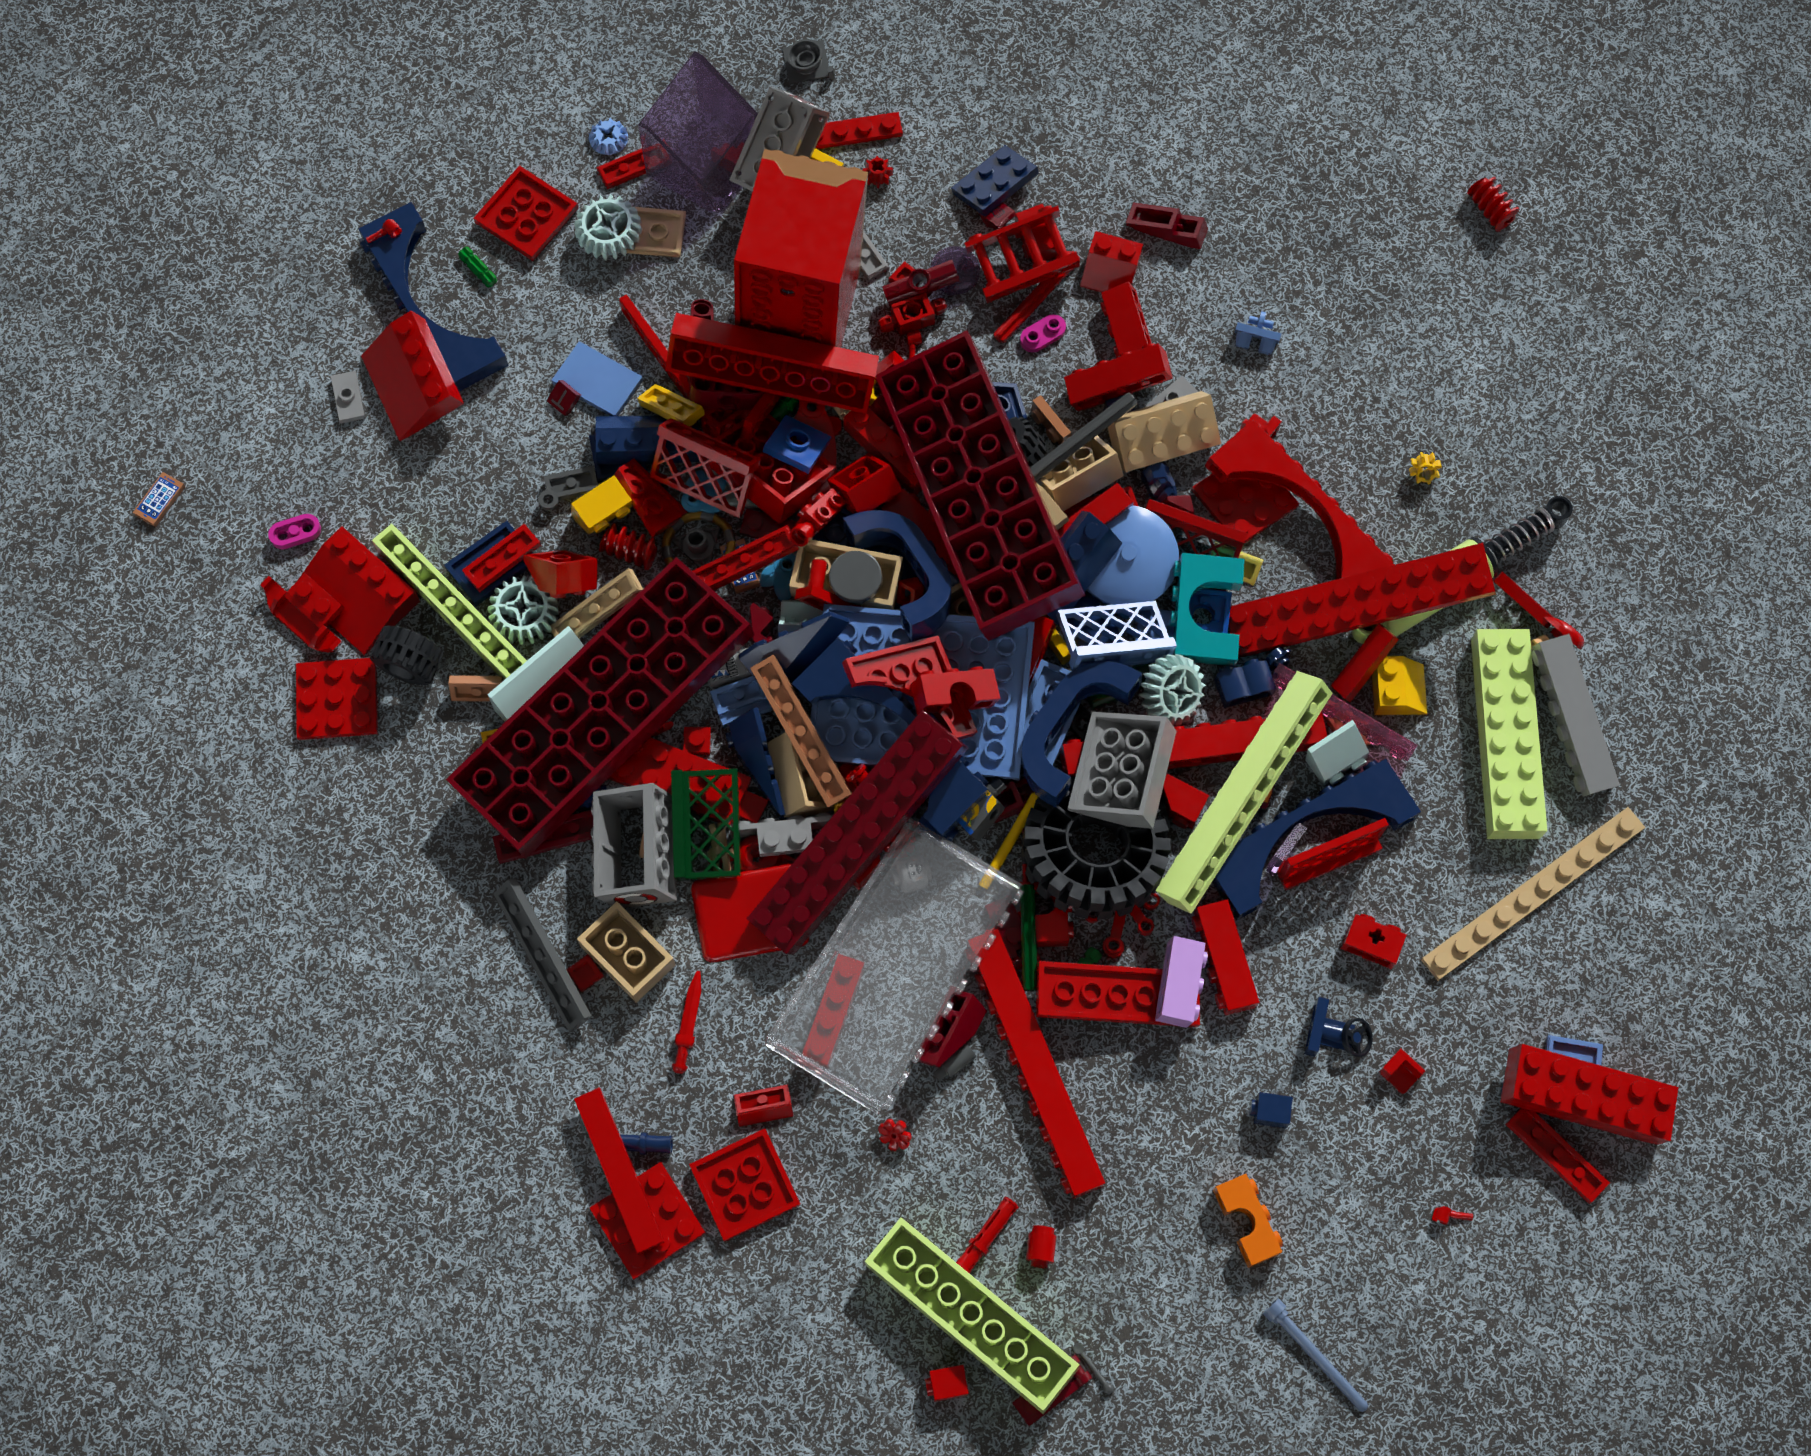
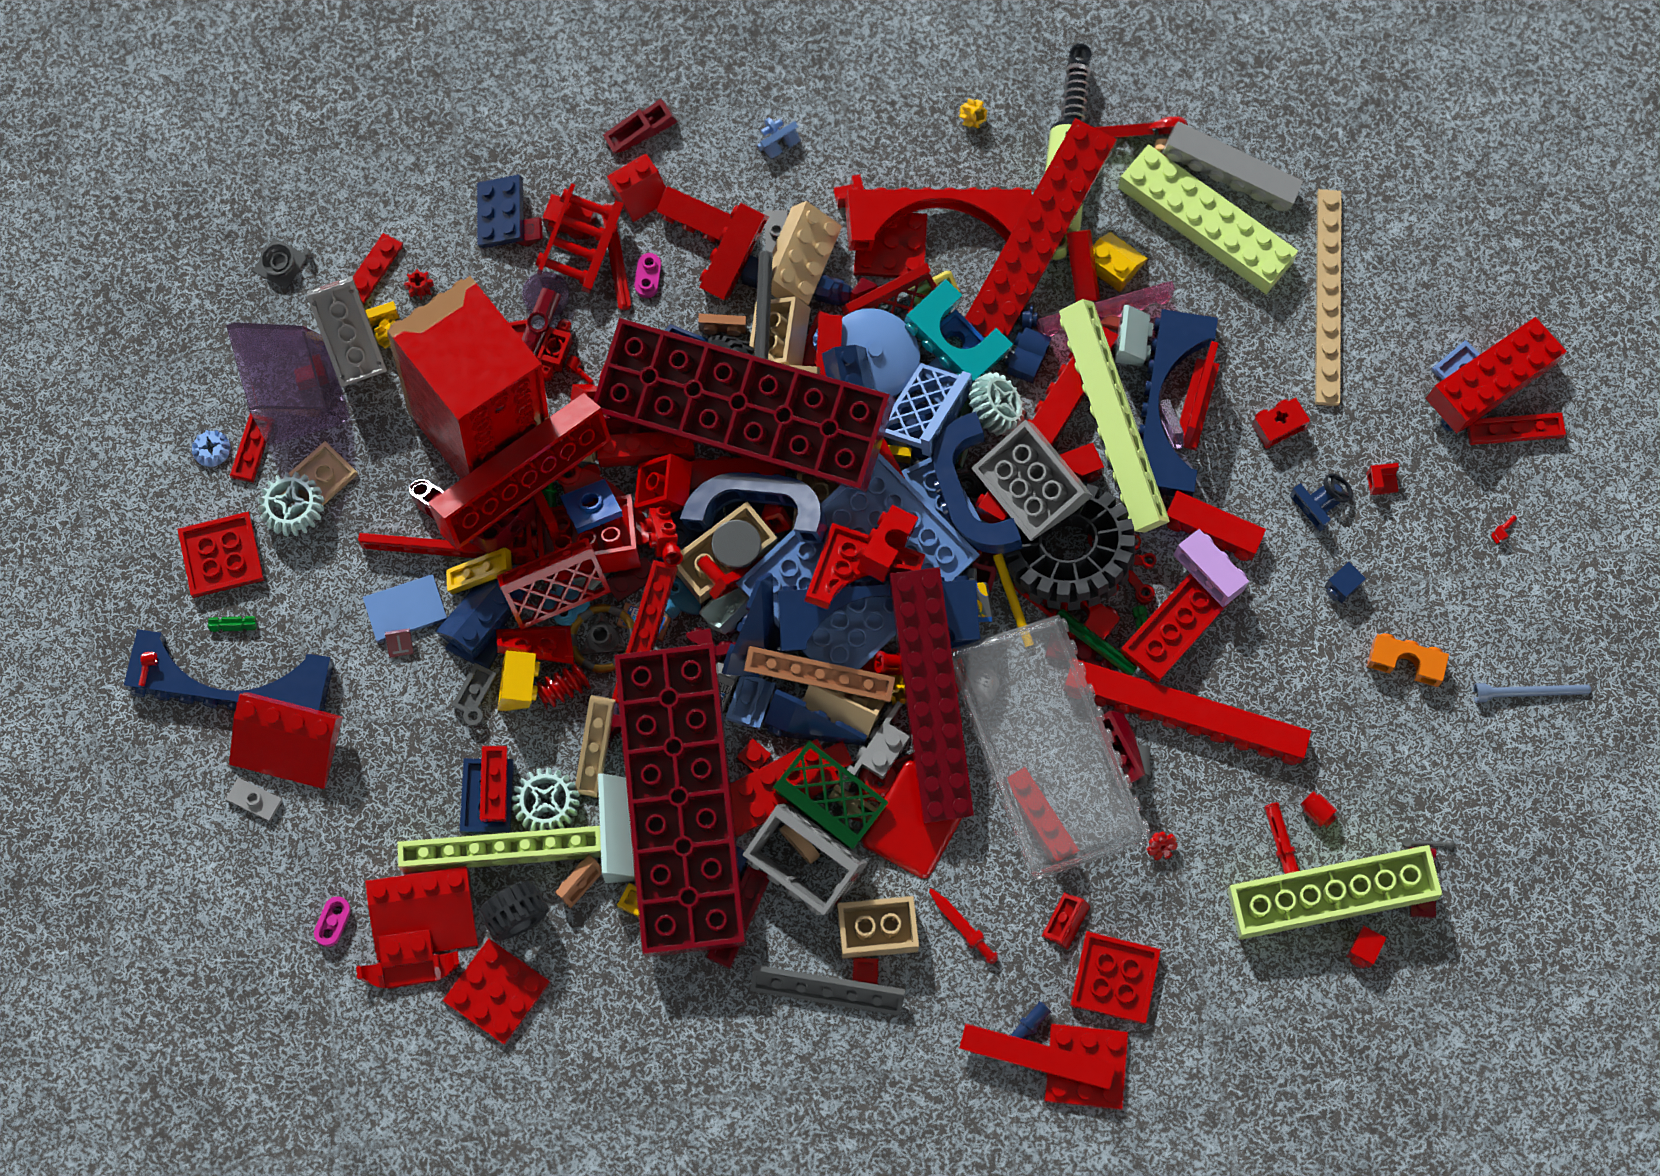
camera: 50 degrees left, 0 degrees up
(159, 499) = (212, 1005): tile -> none
(562, 572) = (543, 748): red slope -> none

